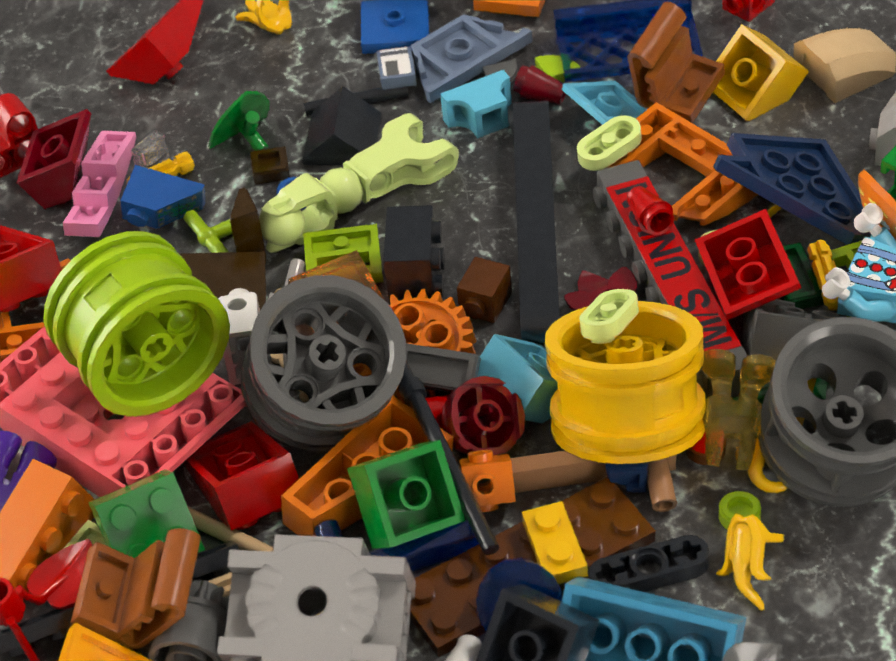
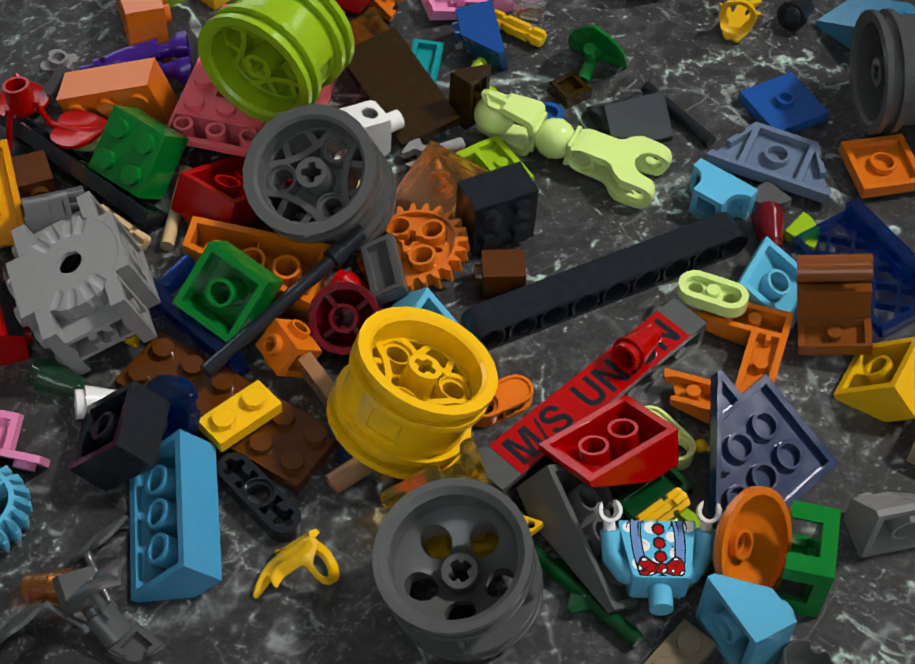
camera: 55 degrees right, 5 degrees up
(137, 596) = (56, 158): dark orange piece -> none
(396, 68) = (725, 122): slope -> none
(592, 285) = (550, 358): dark red plate -> none
(609, 315) = (446, 341): yellowish green plate -> none
(738, 502) = (352, 544): lime tile -> none

